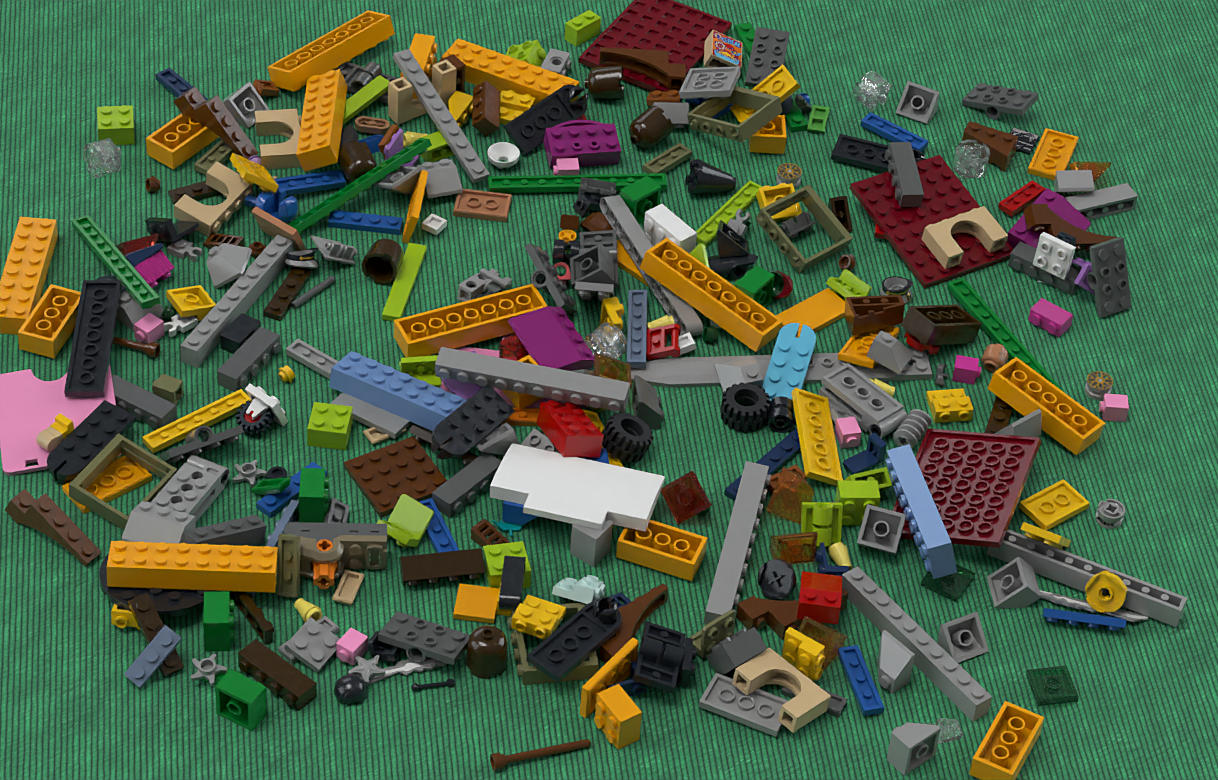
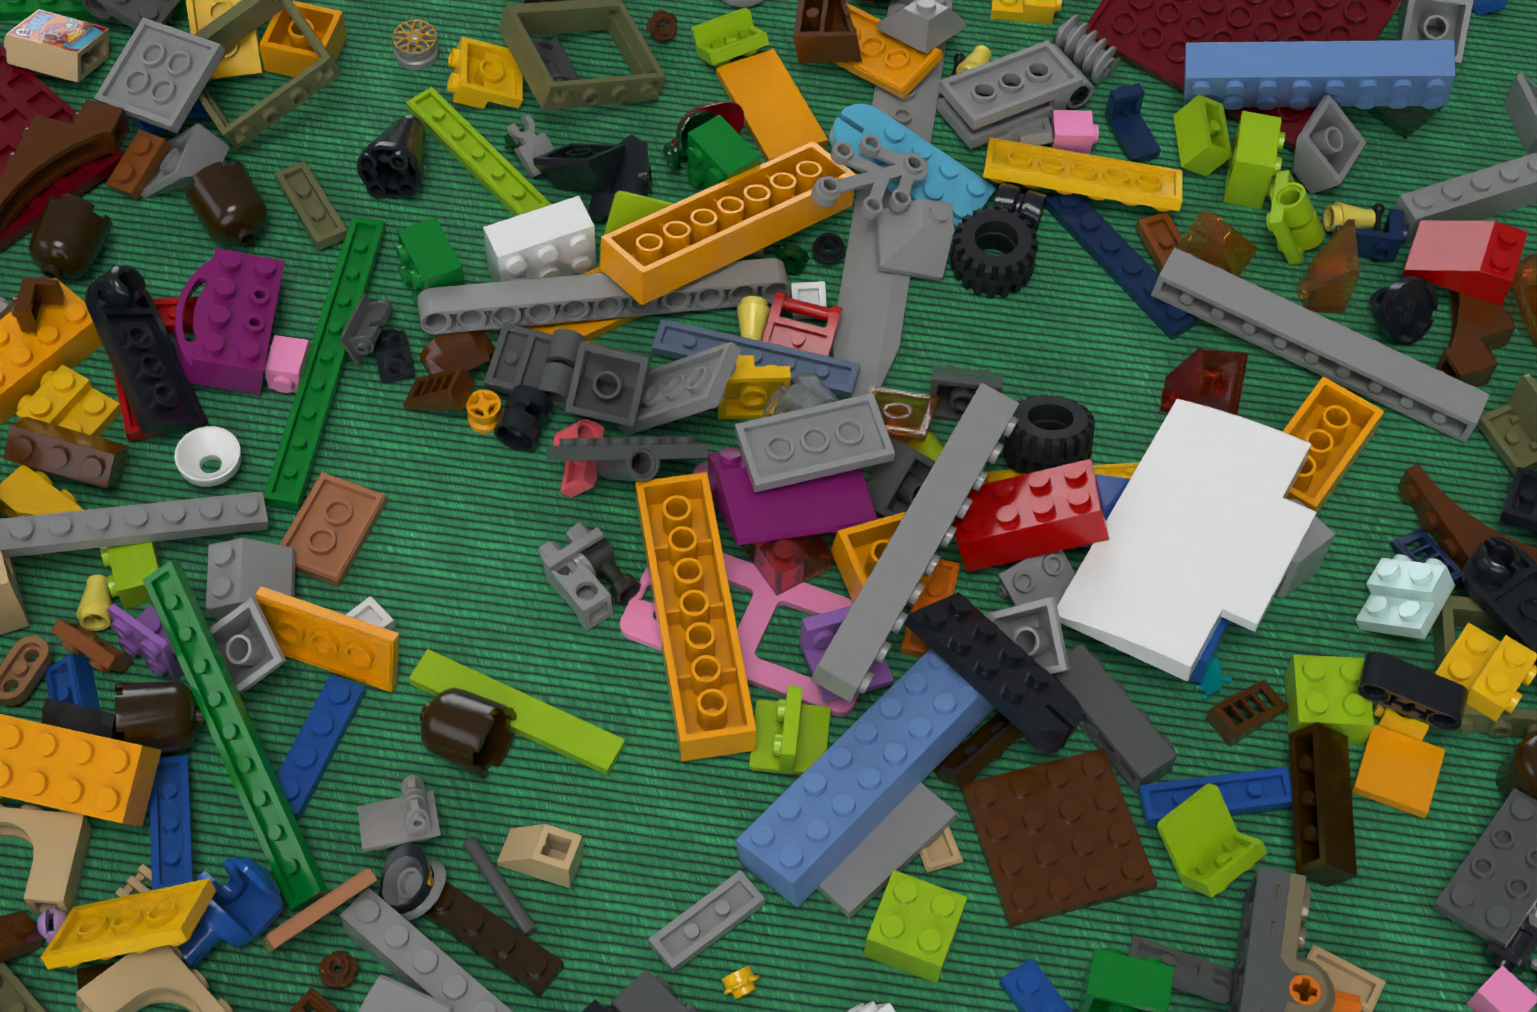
camera: 75 degrees left, 15 degrees up
(329, 300) = (543, 853): none -> tan slope
(555, 71) = (30, 300): none -> reddish brown bracket
(573, 333) = (814, 442): none -> light grey plate
(723, 348) = (831, 242): none -> black plate
(760, 341) = (906, 167): none -> light grey plant

